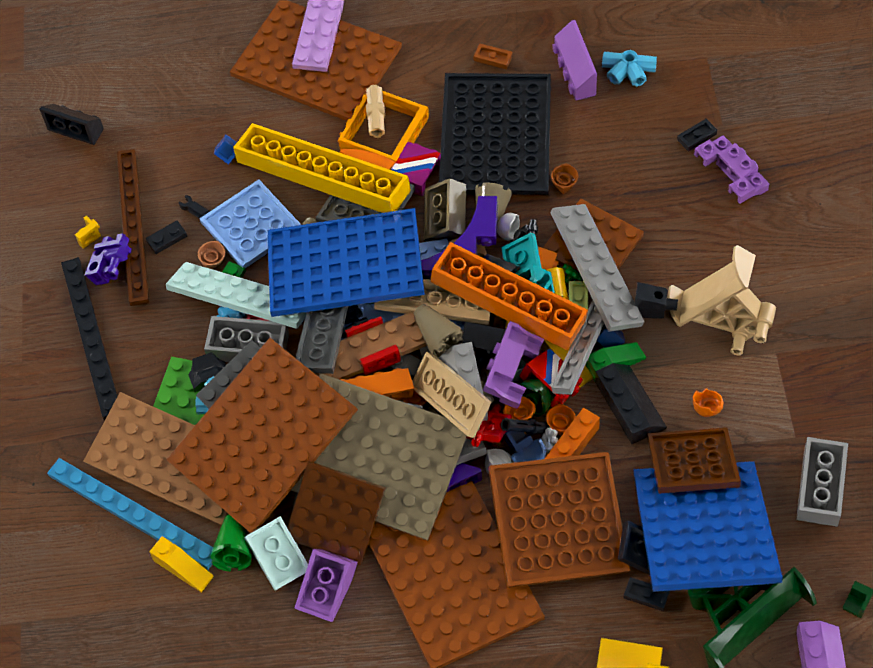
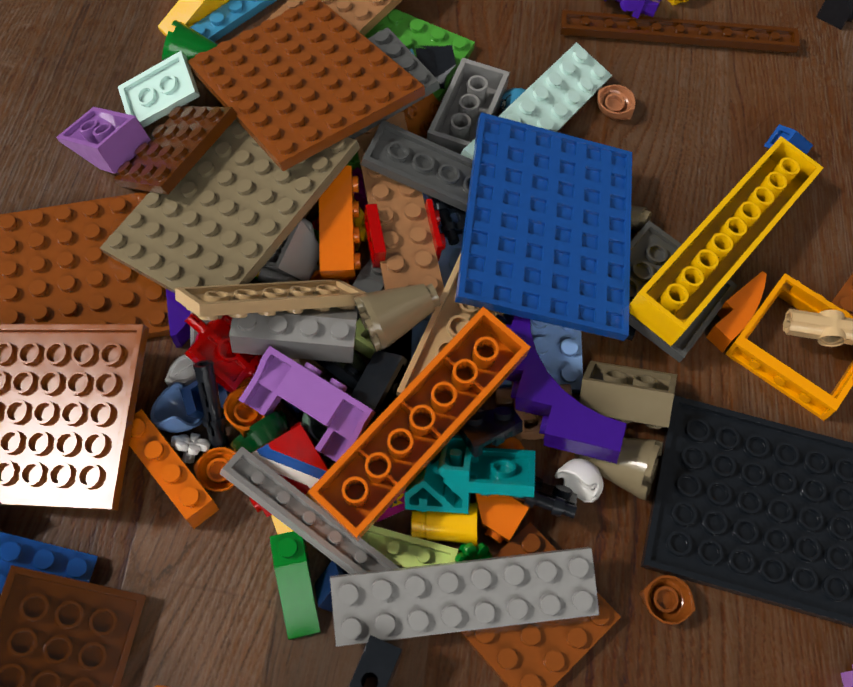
camera: 95 degrees right, 5 degrees up
(166, 237) = (656, 65): black plate -> none
(193, 207) = (694, 98): black bar -> none
(234, 269) = (584, 123): green plate -> none
(244, 221) = (666, 151): light blue plate -> none
(417, 164) = (724, 370): panel -> none
(628, 401) = (209, 585): black slope -> none

